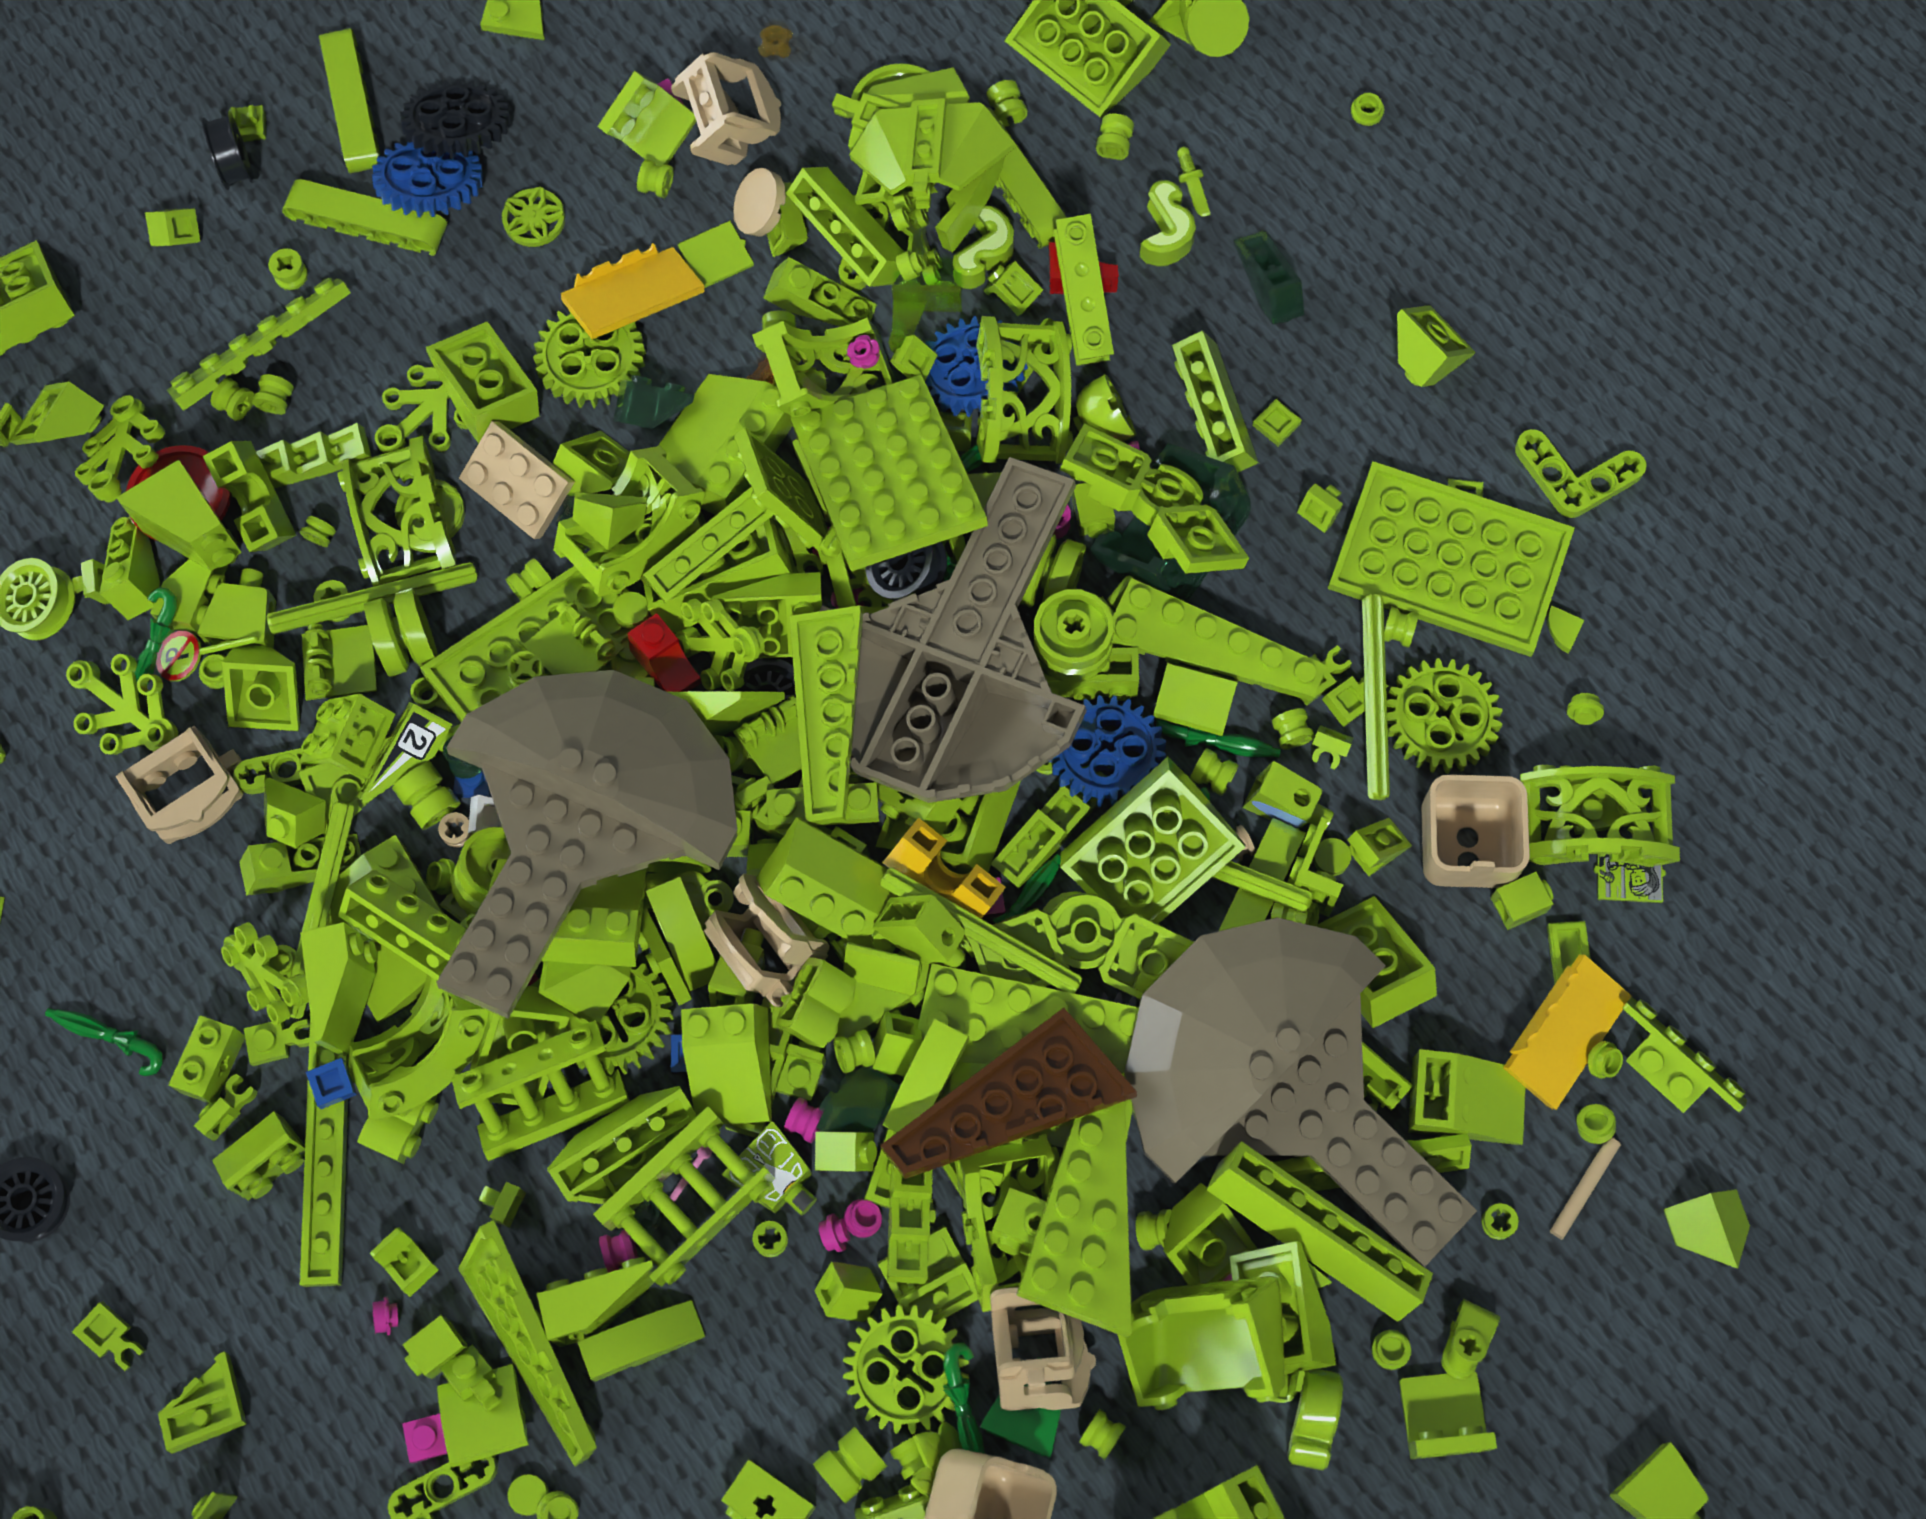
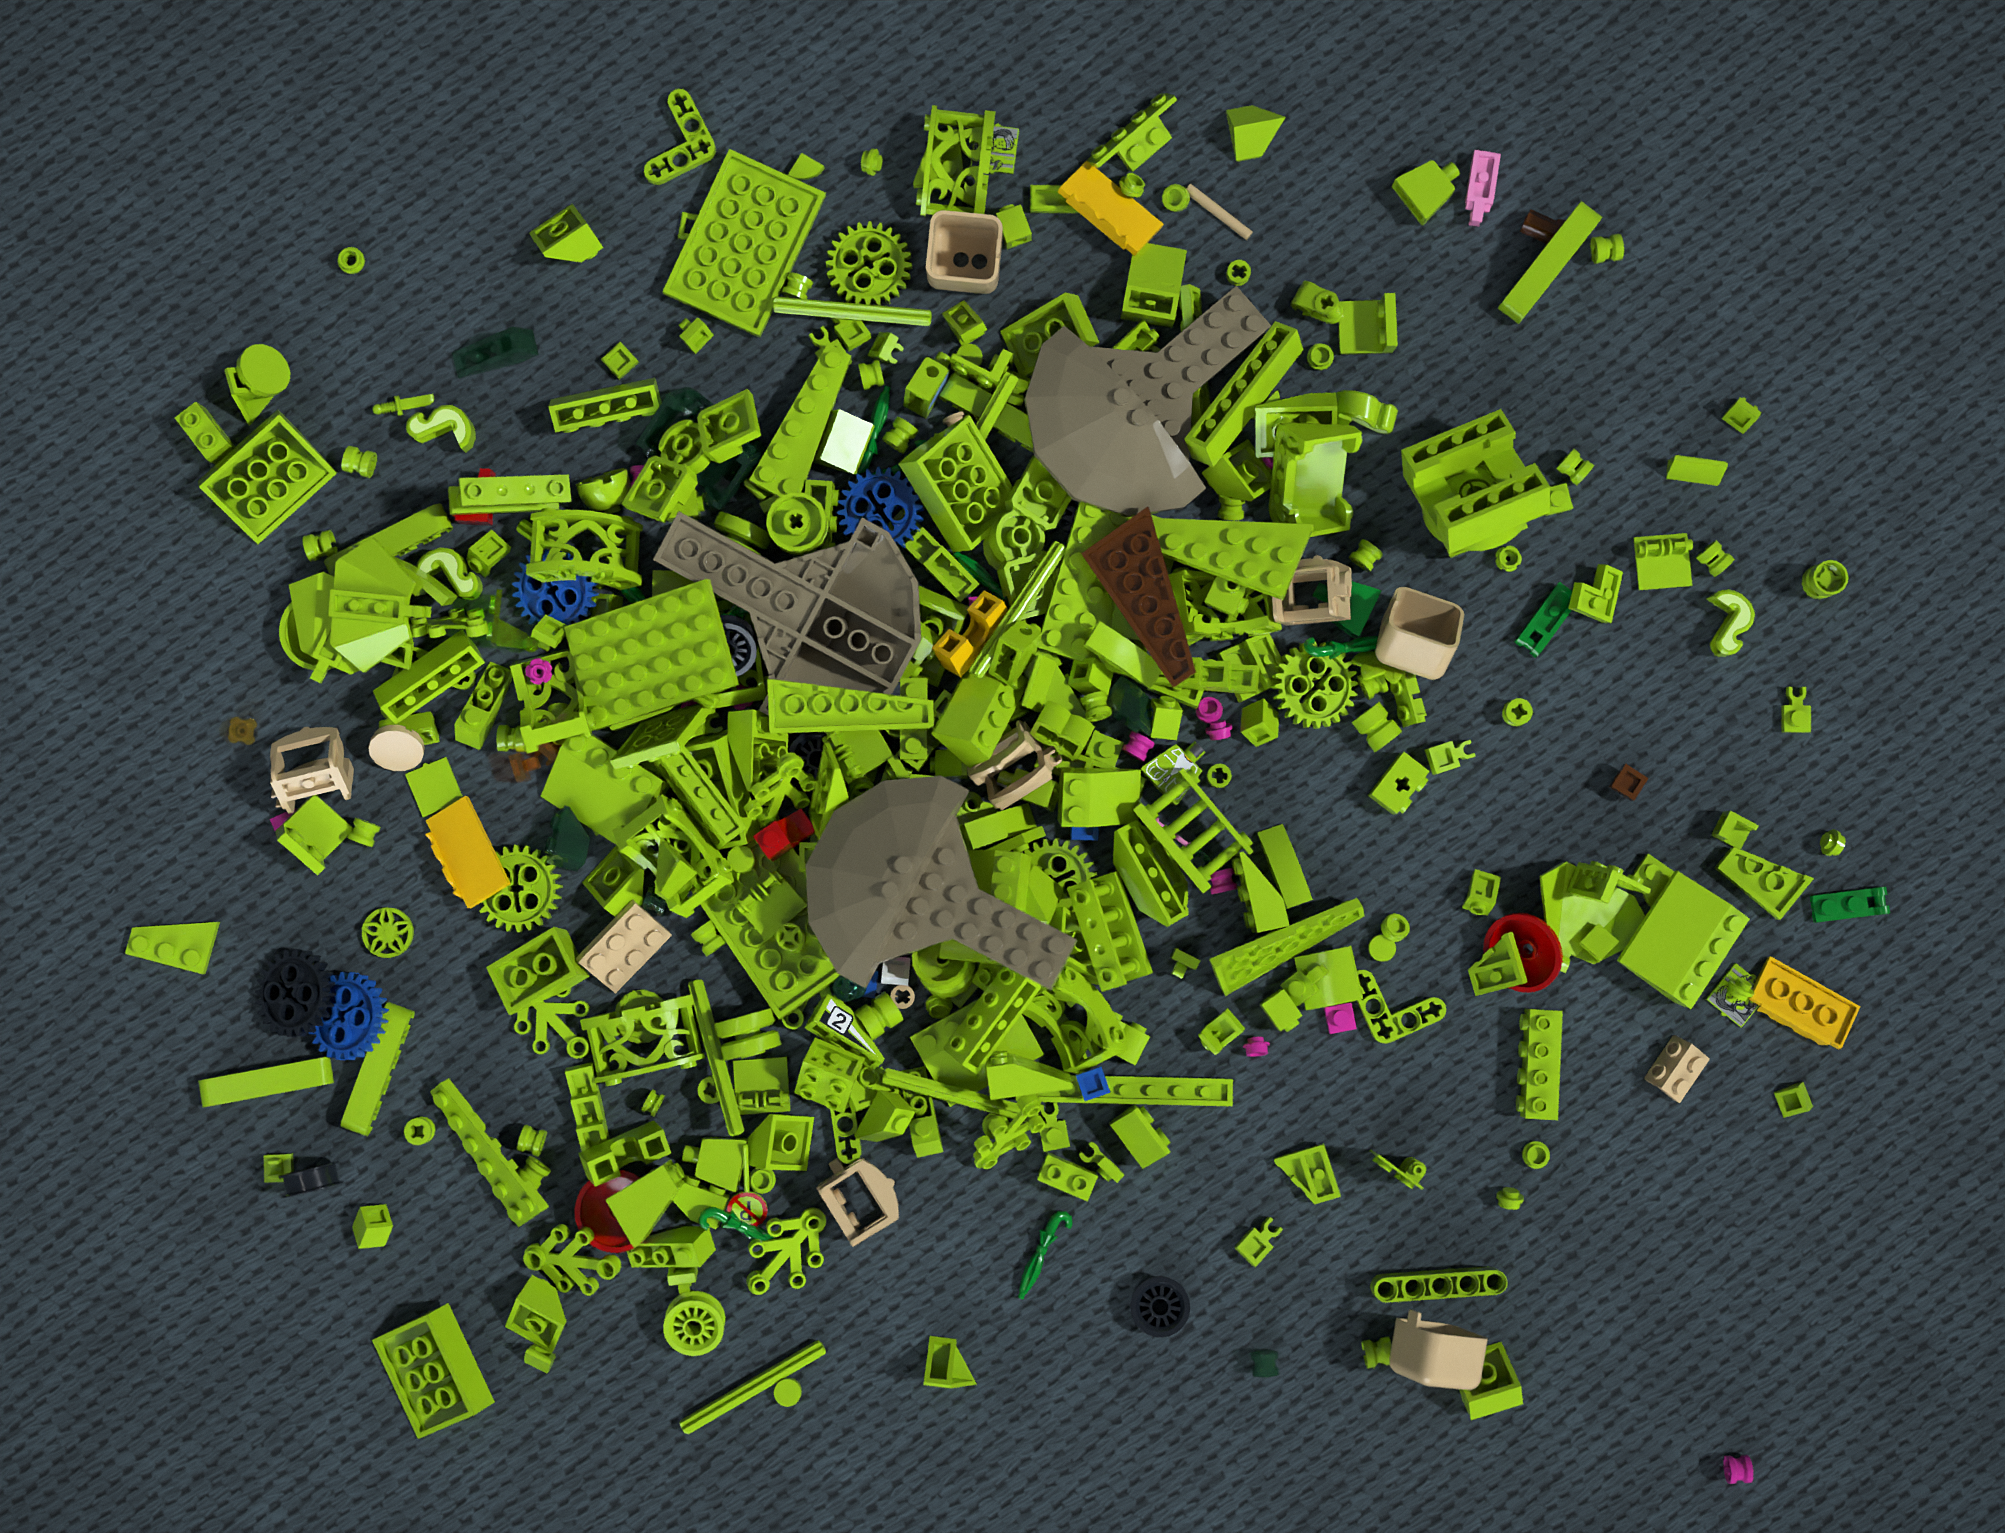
camera: 90 degrees left, 15 degrees up
(742, 347) = (522, 766): none -> clear orange tile

